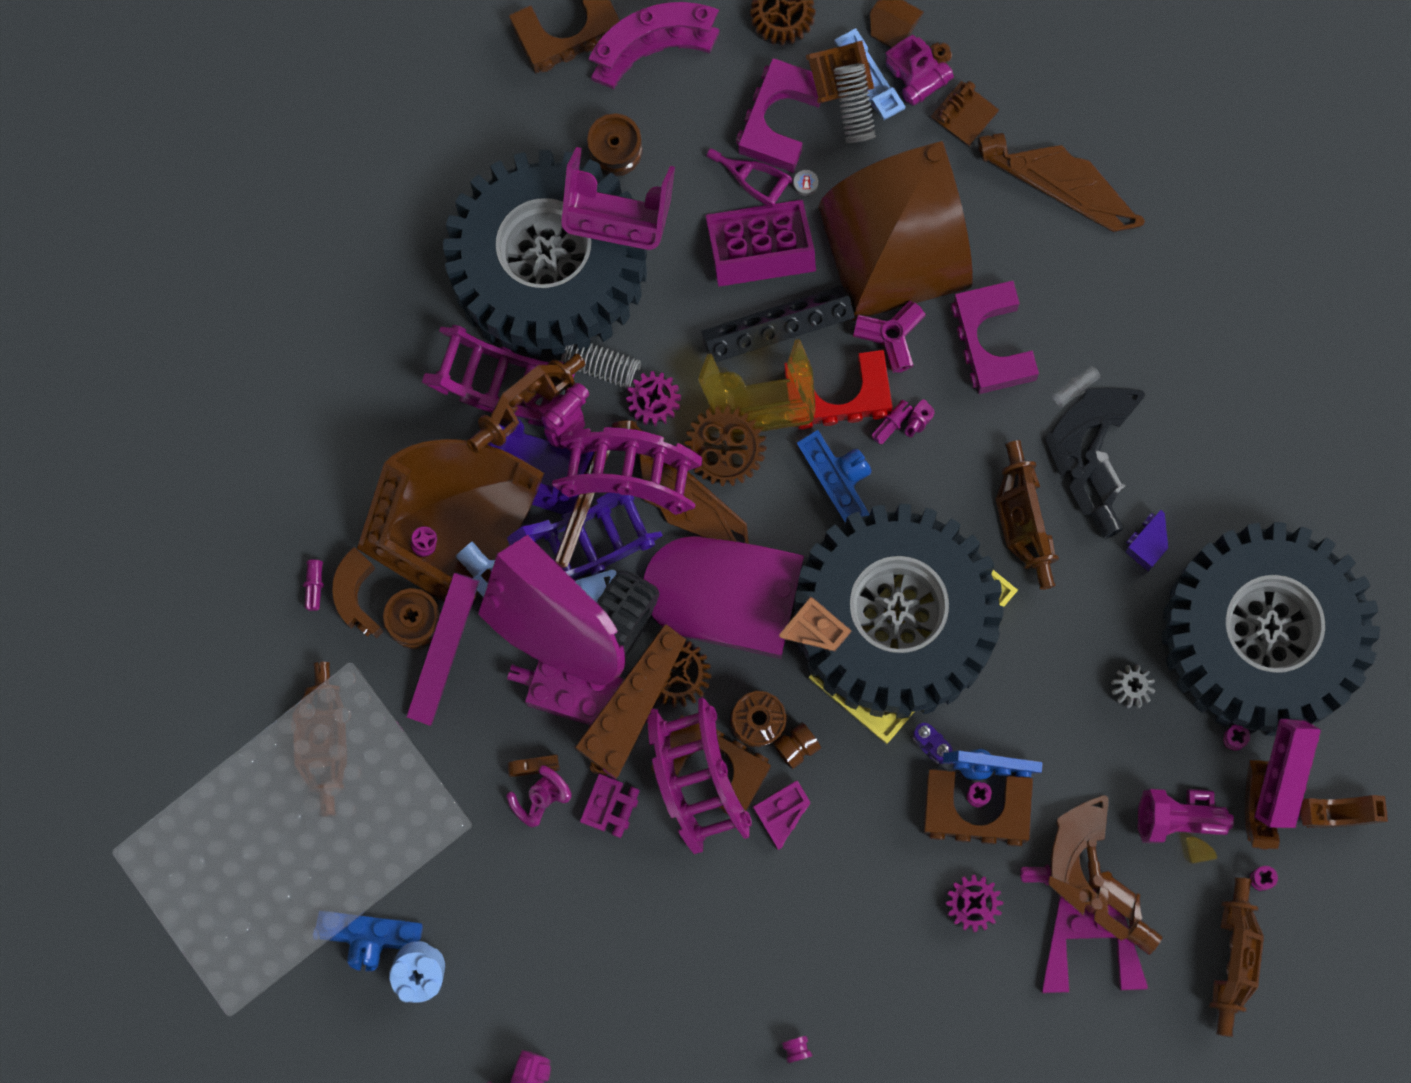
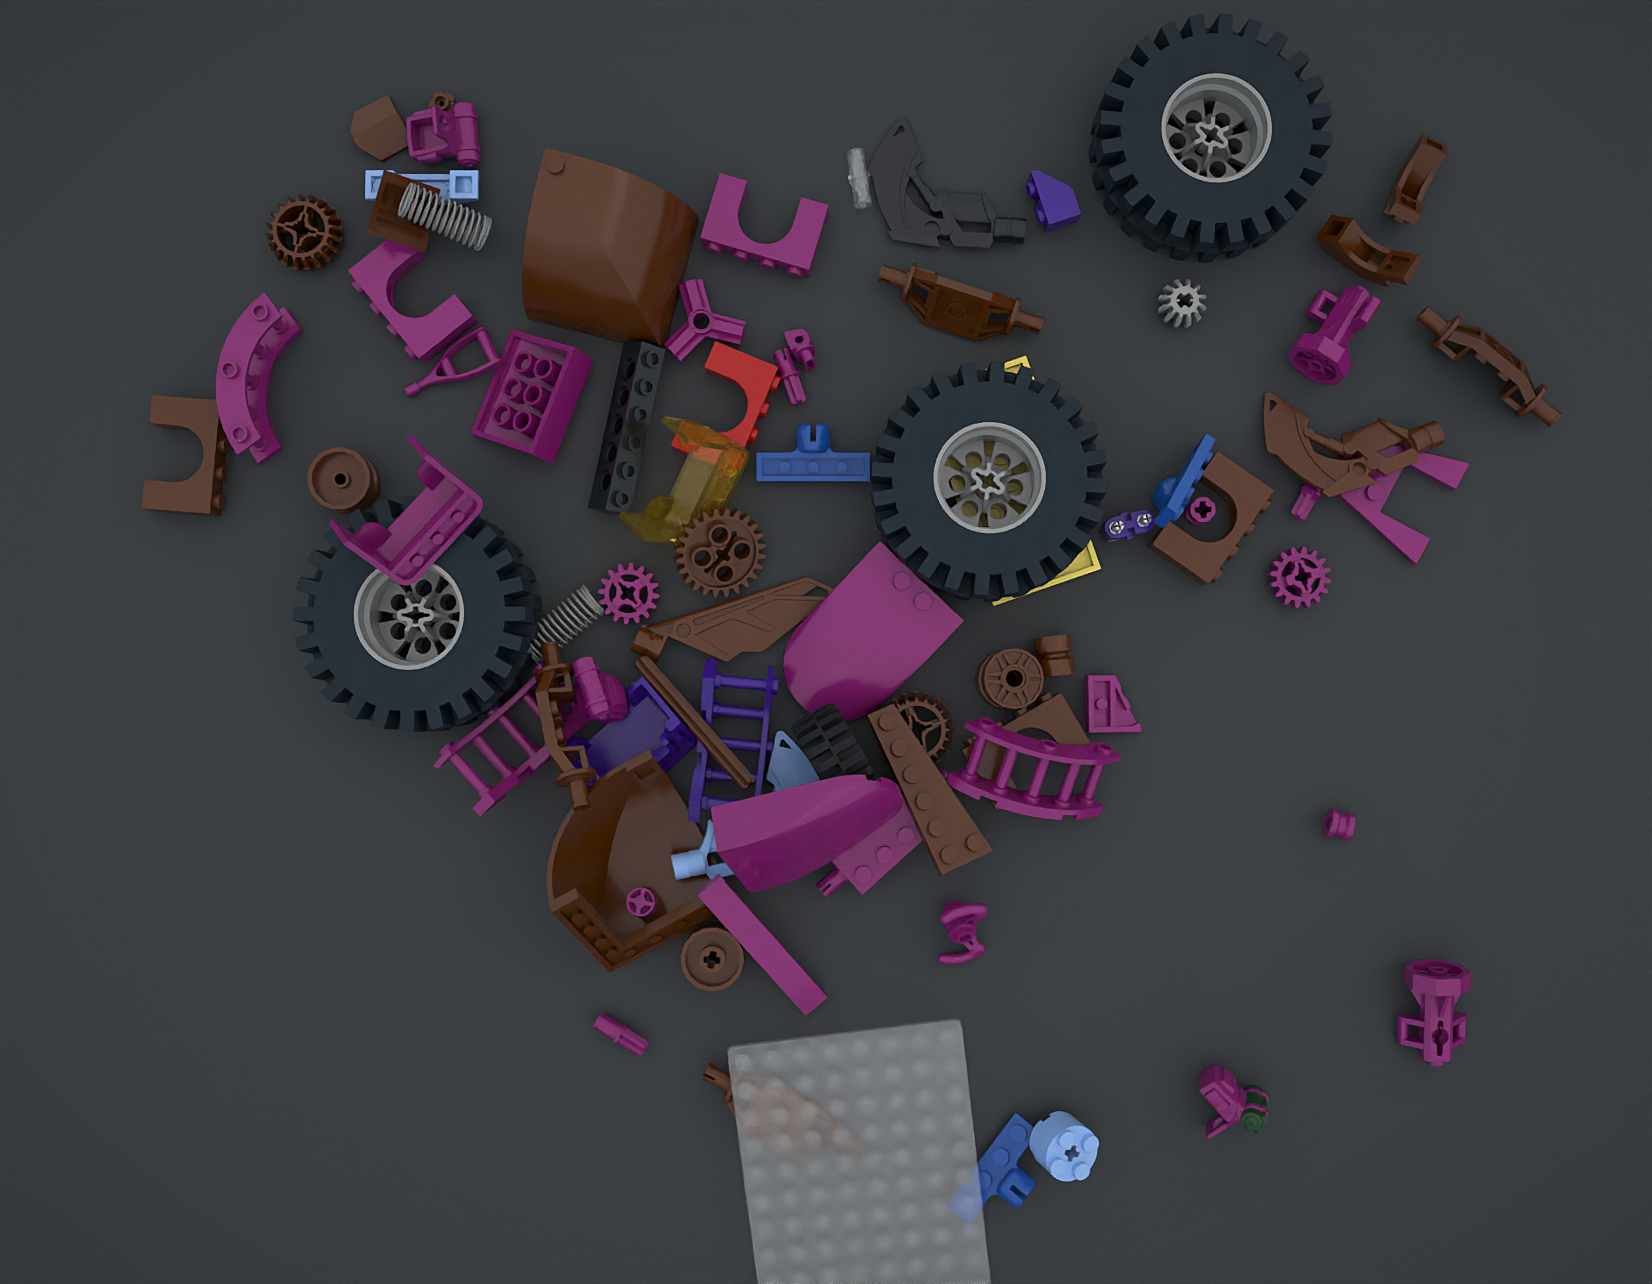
camera: 65 degrees left, 10 degrees up
(346, 585) = (649, 1008): reddish brown arch -> none
(532, 765) = (926, 920): reddish brown piece -> none
(602, 802) = (1001, 875): magenta plate -> none
(632, 442) = (668, 642): magenta fence -> none
(805, 183) = (496, 316): light grey tile -> none
(816, 627) = (968, 572): nougat wing -> none
(965, 112) = (517, 116): reddish brown hinge -> none
(1063, 178) = (643, 62): reddish brown wing -> none
(1199, 850) = (1368, 337): clear yellow tile -> none
(1237, 745) = (1293, 232): magenta bush -> none
(1272, 878) = (1433, 286): magenta bush -> none
(1287, 776) = (1364, 206): magenta brick -> none

